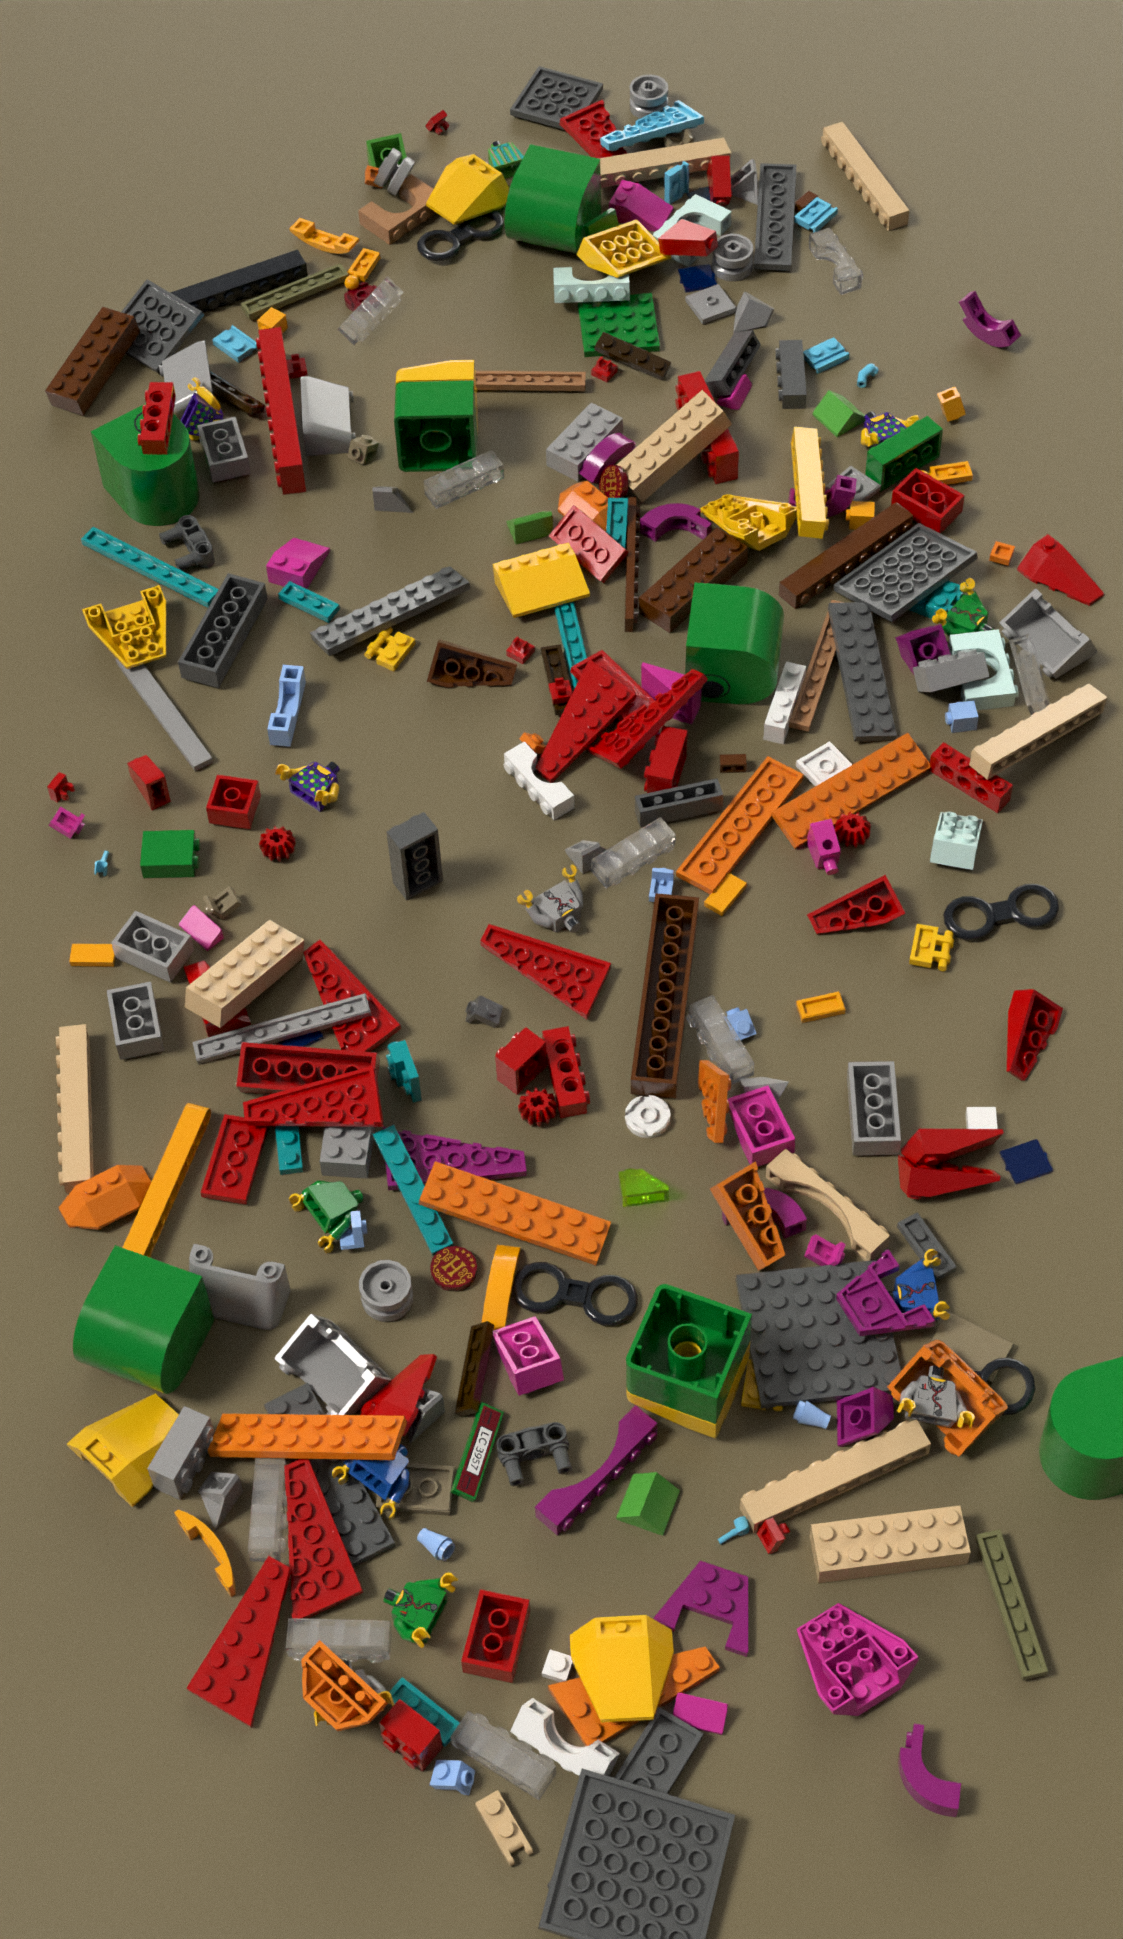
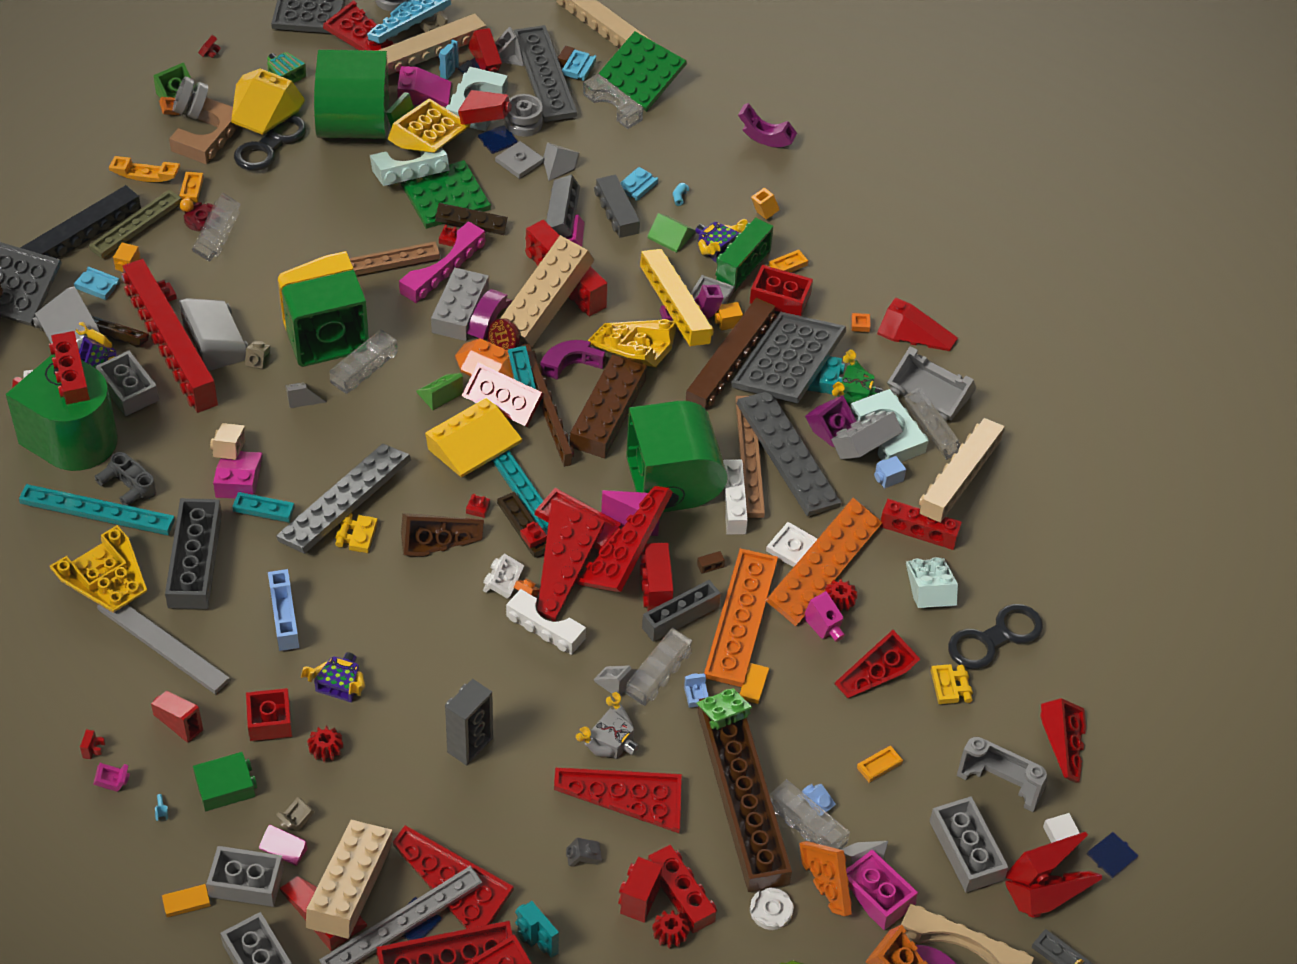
camera: 25 degrees left, 5 degrees down
(298, 528) = (228, 441): none -> tan brick
(518, 722) = (503, 576): none -> white bracket
(556, 410) = (420, 282): none -> dark pink arch
(674, 906) = (725, 708): none -> bright green hinge
(879, 233) = (642, 69): none -> green plate
(922, 1026) = (987, 756): none -> light grey windscreen

